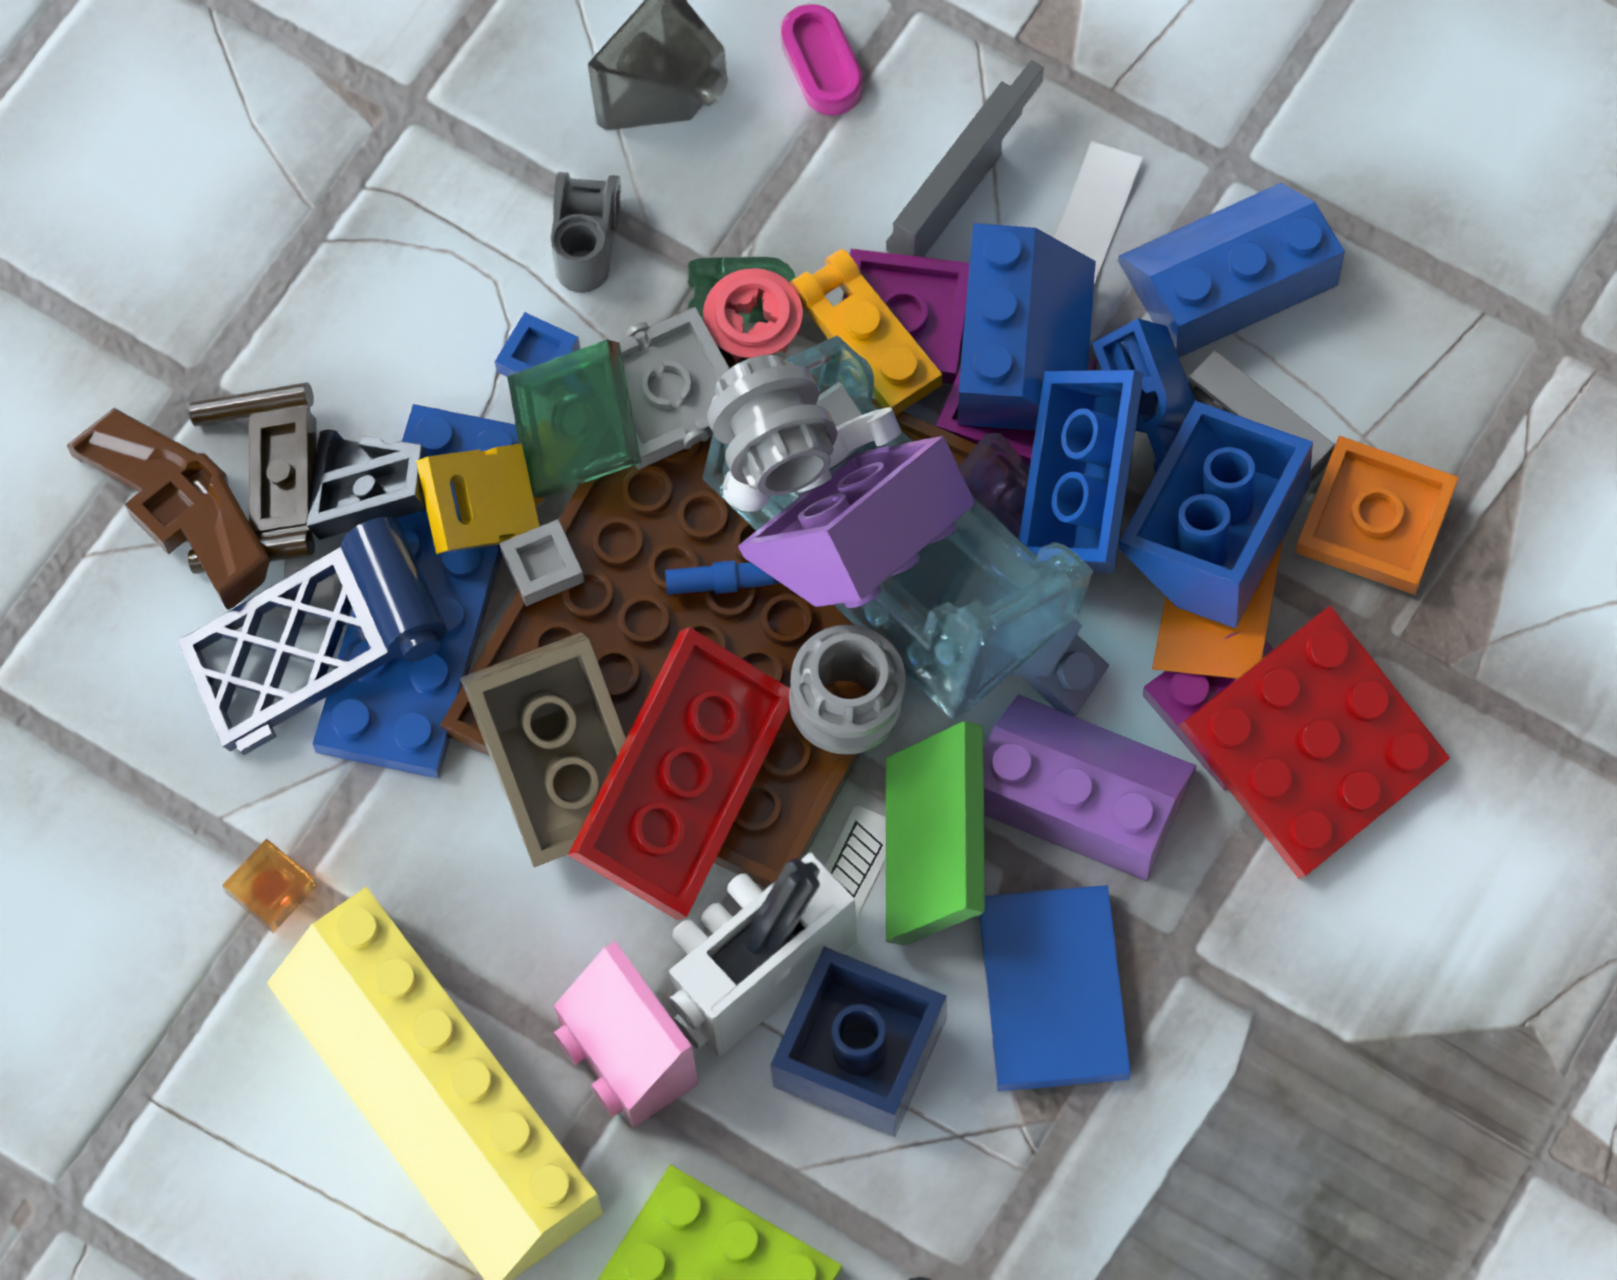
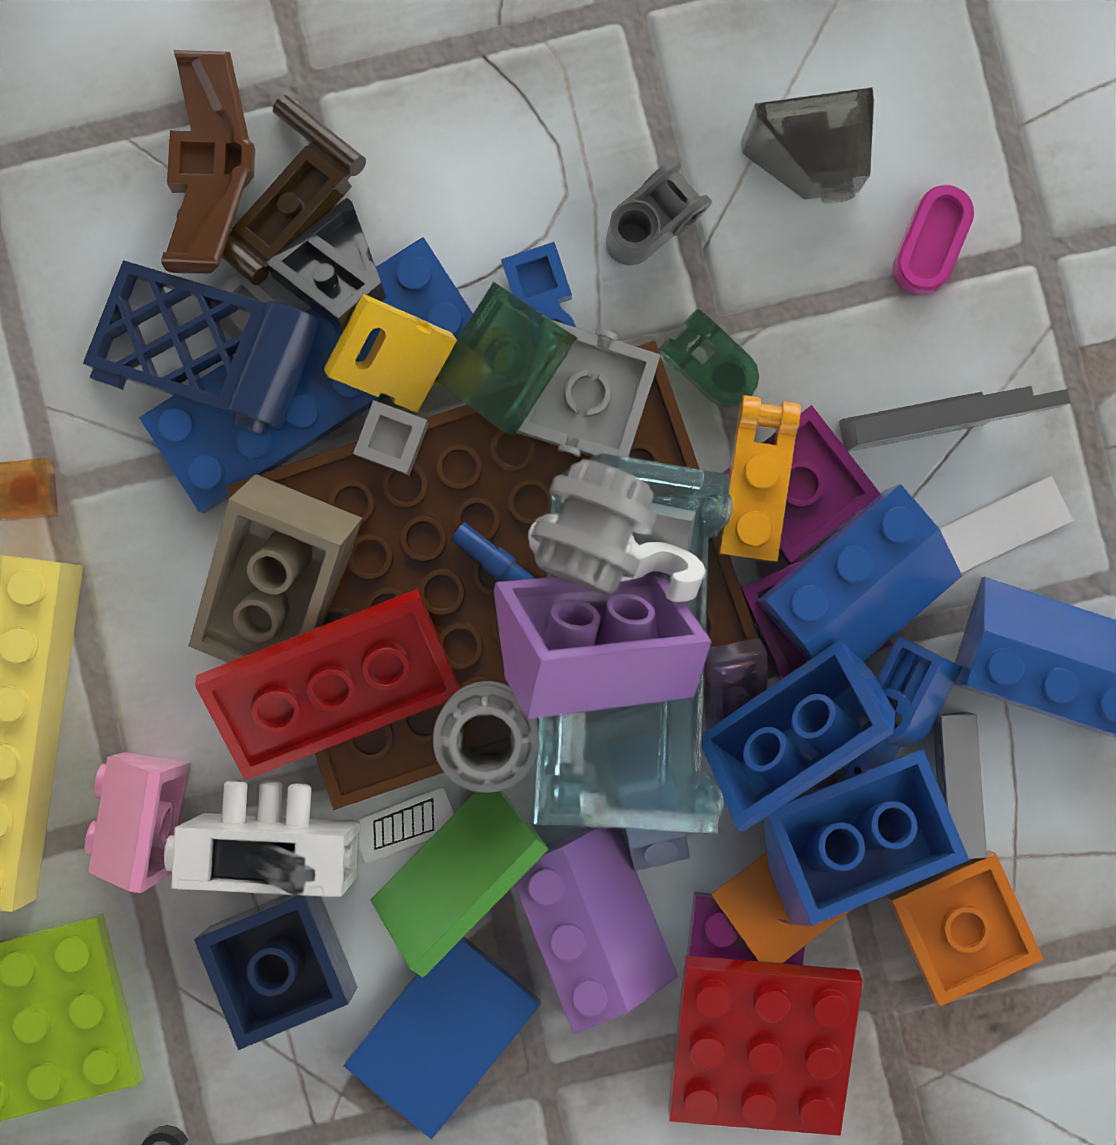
camera: 40 degrees right, 20 degrees up
(742, 292) = (703, 368): coral gear -> none

